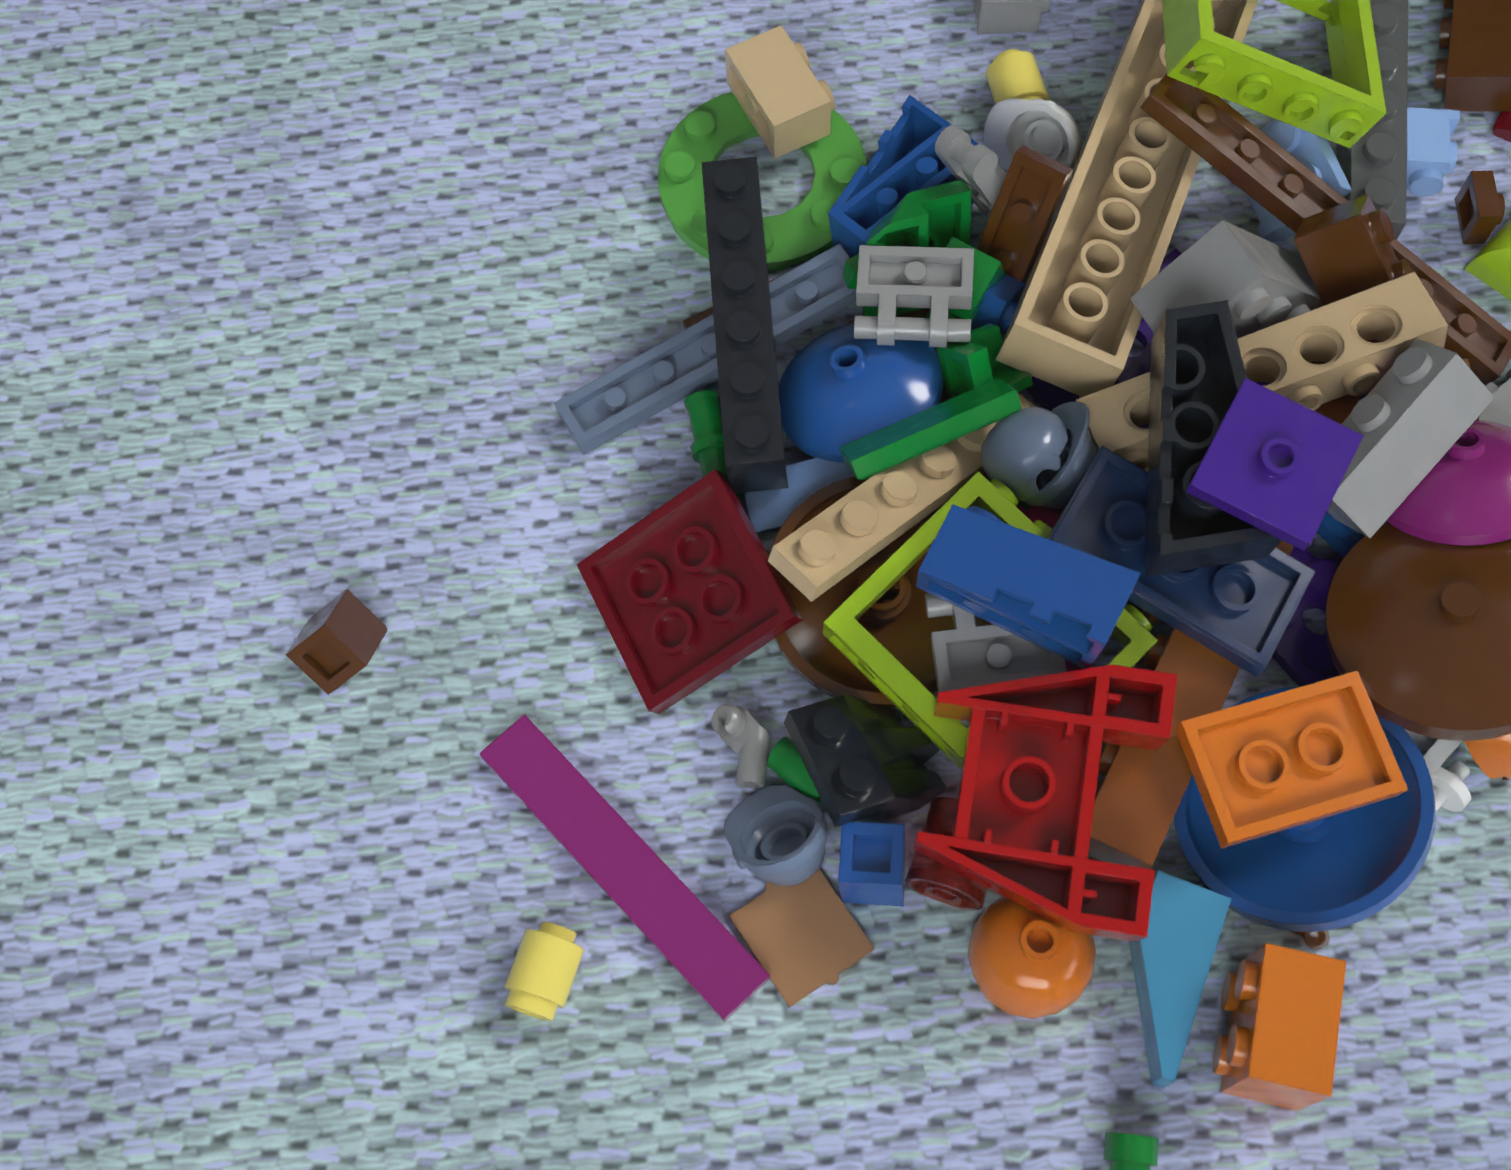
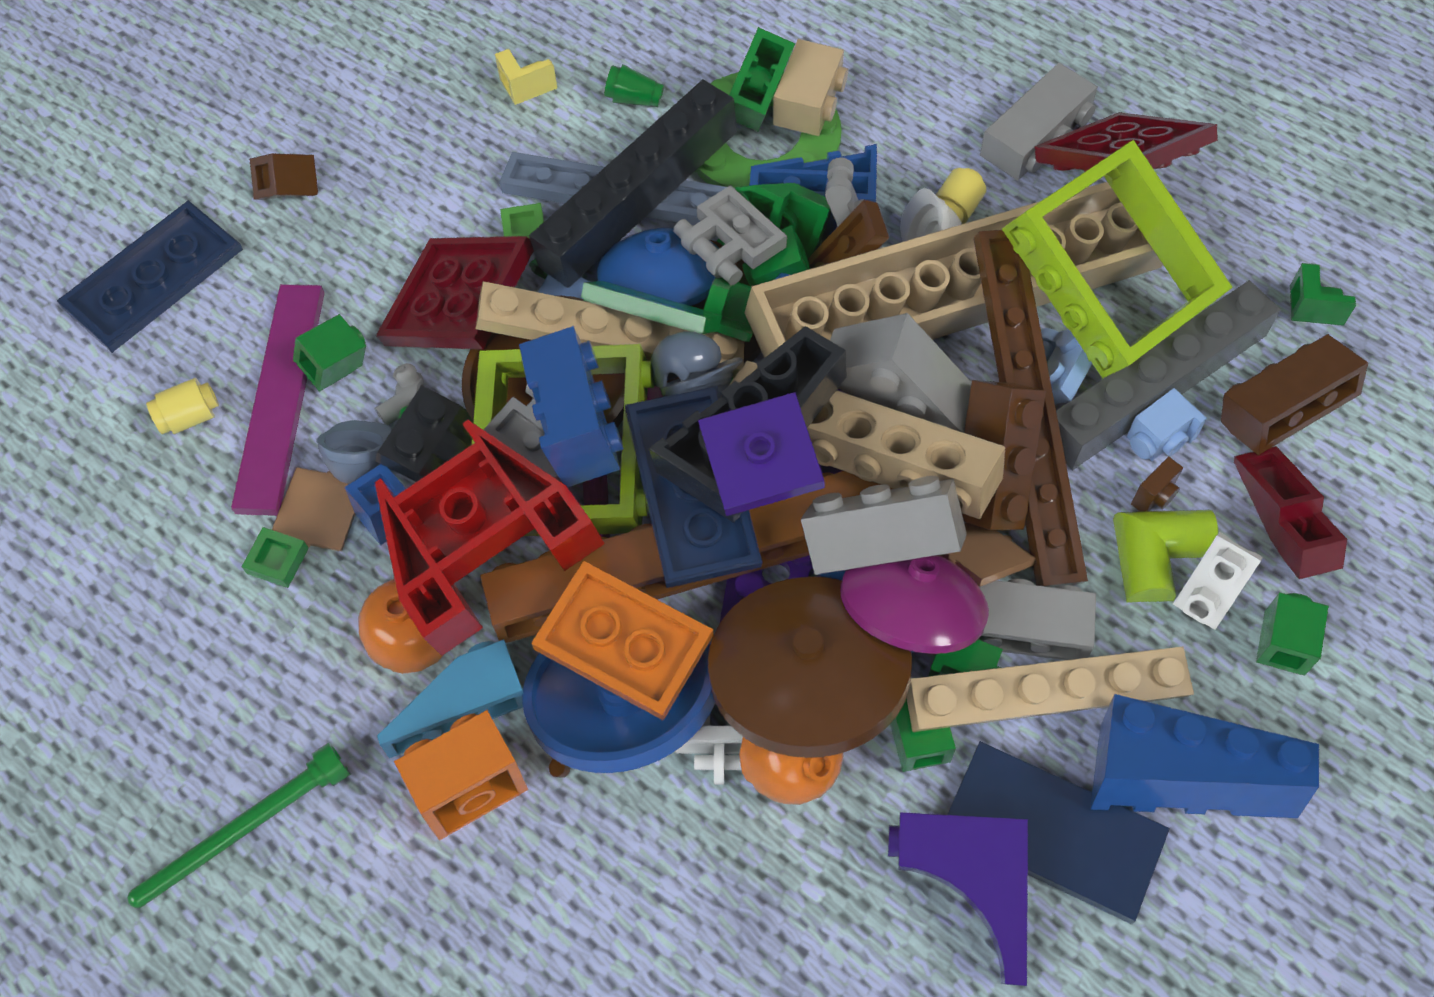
camera: 45 degrees right, 5 degrees down
(315, 880) = (149, 276): none -> dark blue tile
(463, 317) = (526, 81): none -> light yellow panel
(586, 236) = (632, 87): none -> green cone
(633, 770) = (329, 352): none -> green brick
(655, 468) = (521, 219): none -> bright green plate
(727, 113) = (759, 77): none -> green brick
(830, 1019) = (275, 557): none -> green plate

